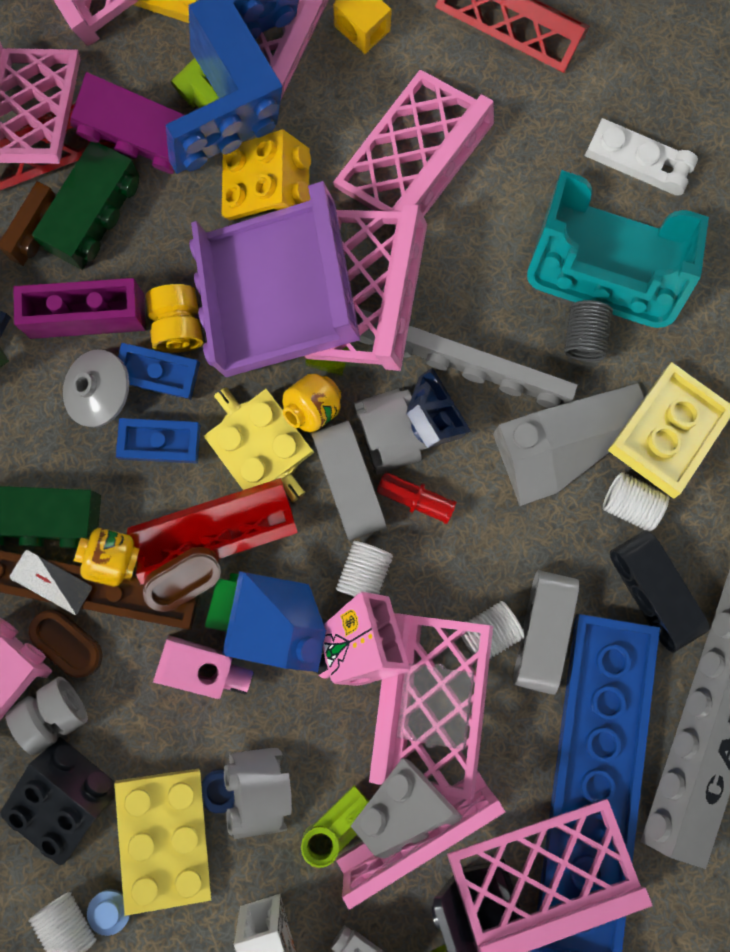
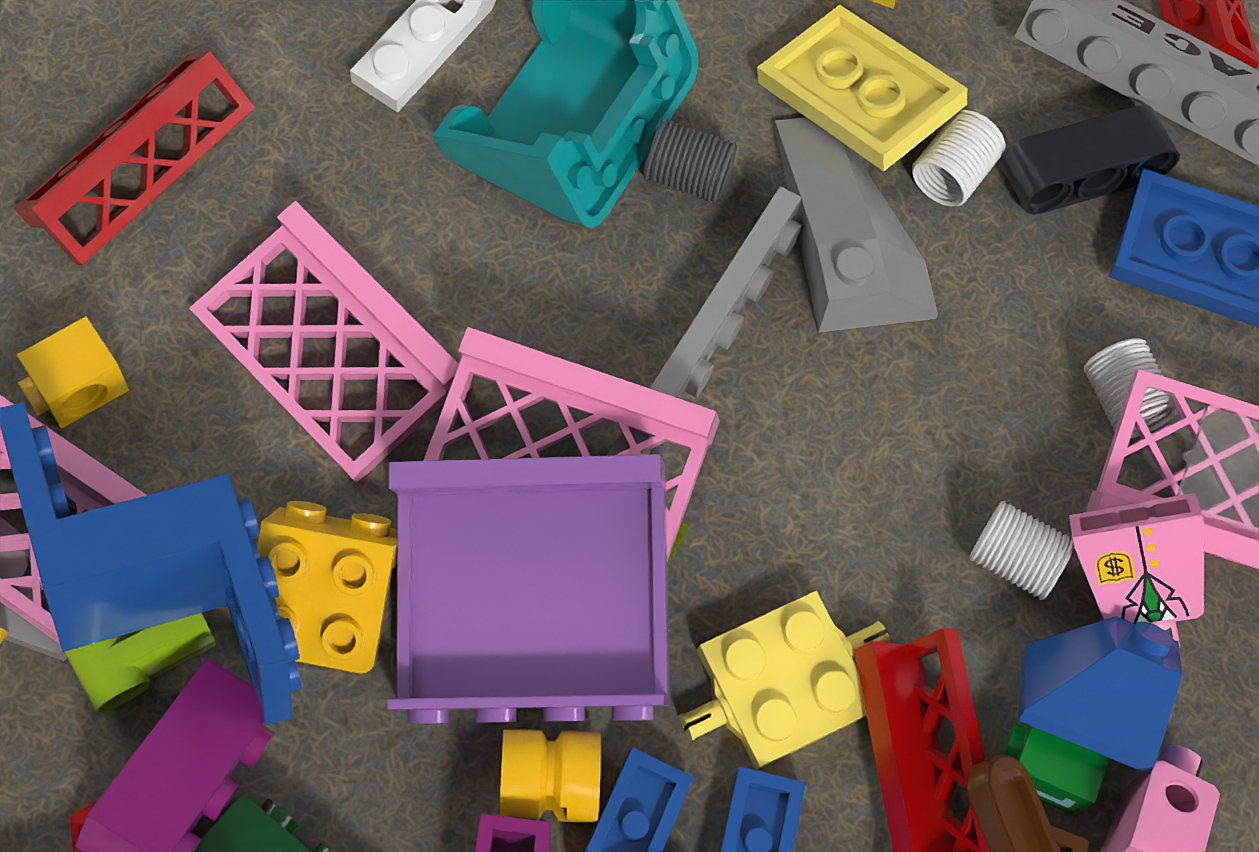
camera: 85 degrees left, 15 degrees down
(311, 402) = (738, 575): yellow head -> none
(349, 480) = (869, 547): light grey beam -> none
(389, 430) = (790, 471): light grey cylinder -> none
(416, 497) = (909, 454): red axle -> none
(434, 413) = (798, 390): dark blue wing -> none
(546, 632) = (1118, 305): light grey beam -> none

